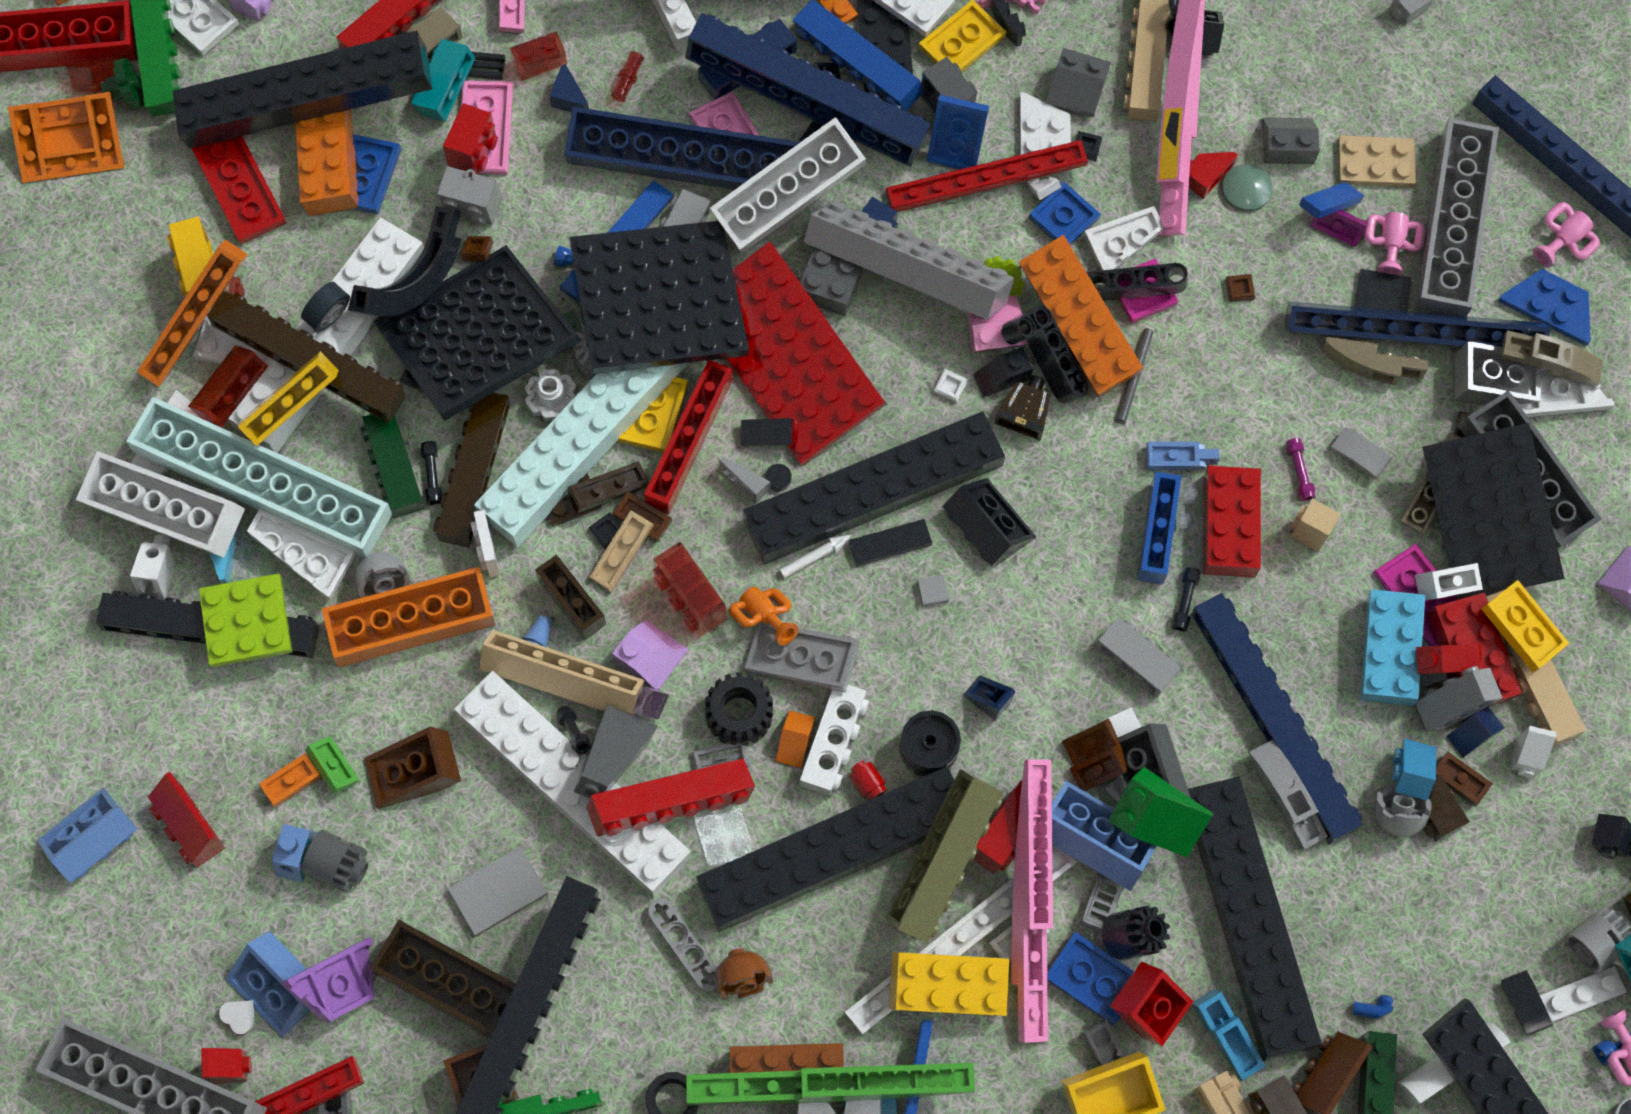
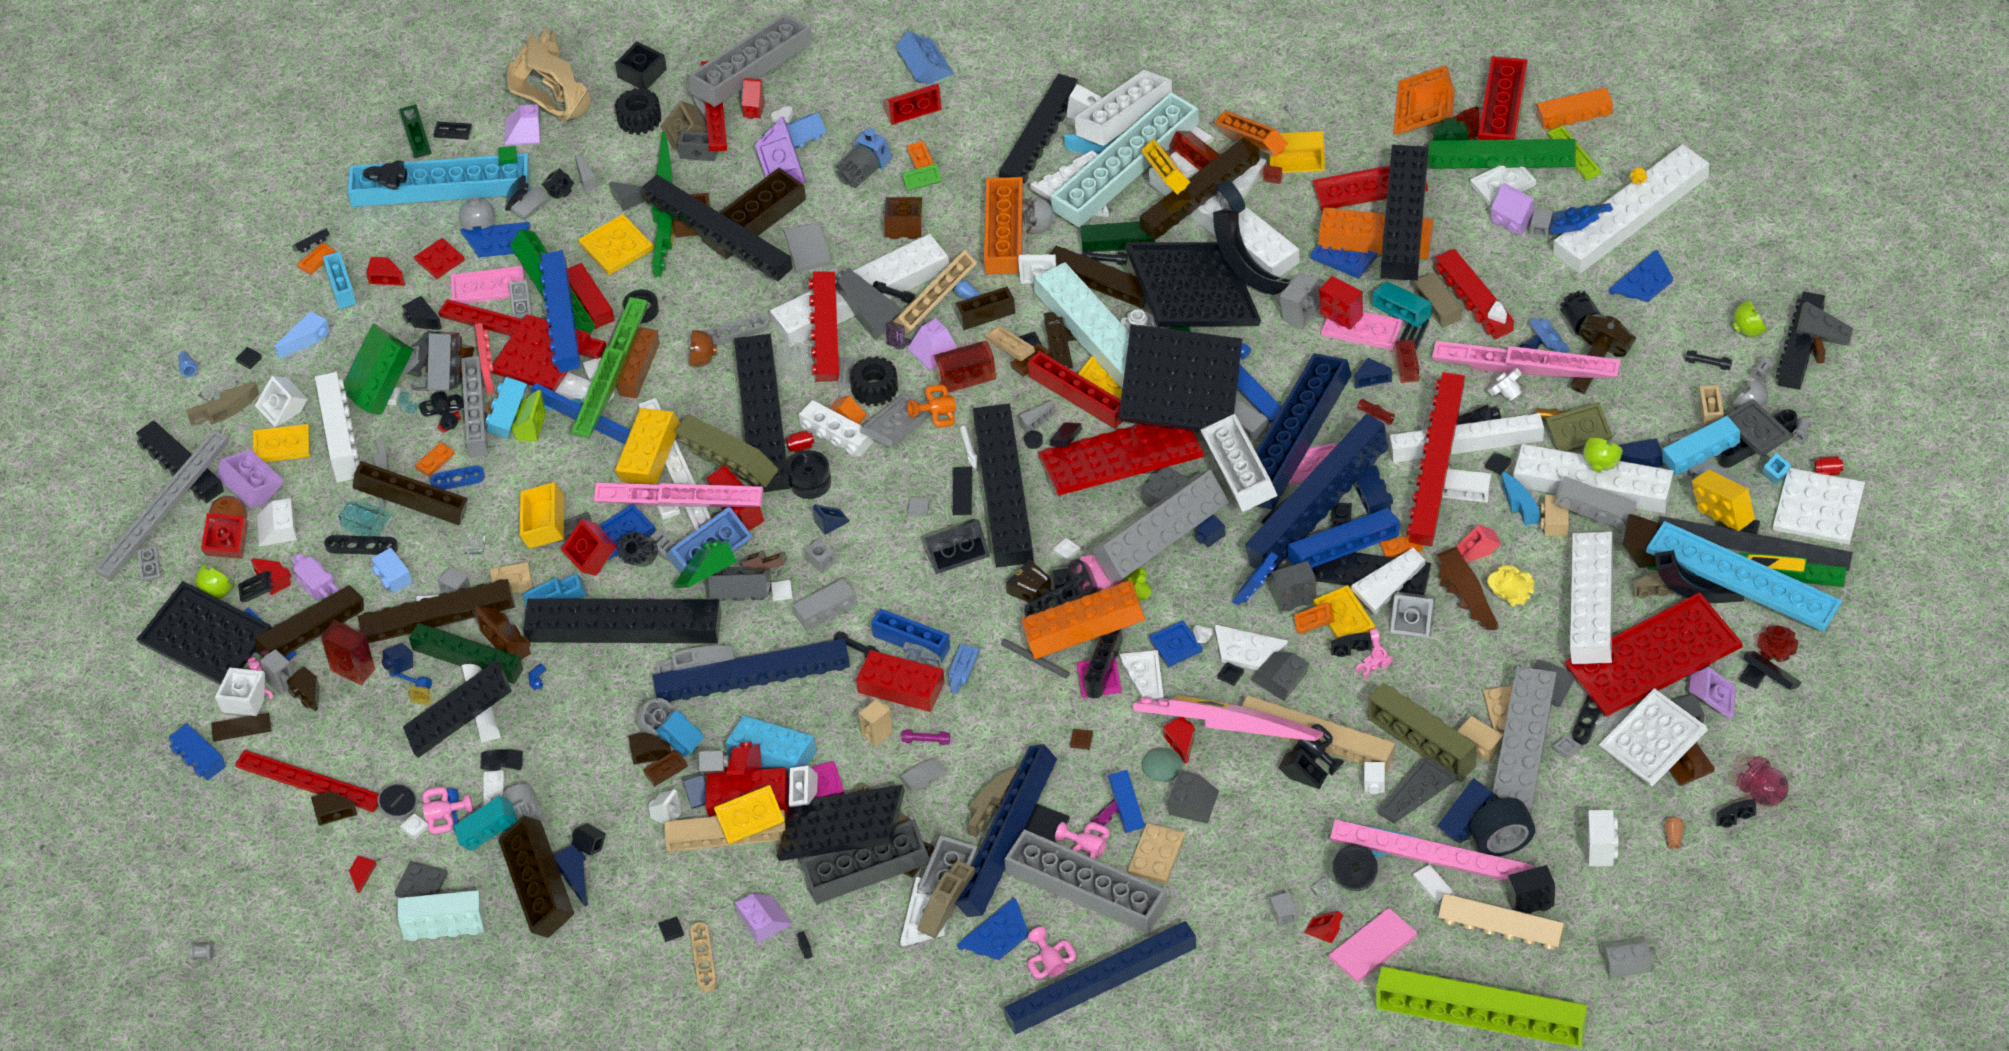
camera: 115 degrees right, 20 degrees down
(245, 620) = (1030, 141): lime plate -> none
(477, 248) = (1264, 305): reddish brown tile -> none
(984, 65) = (1314, 618): none -> orange plate
(987, 176) = (1222, 602): red tile -> none
(1061, 679) = (820, 555): none -> light grey brick

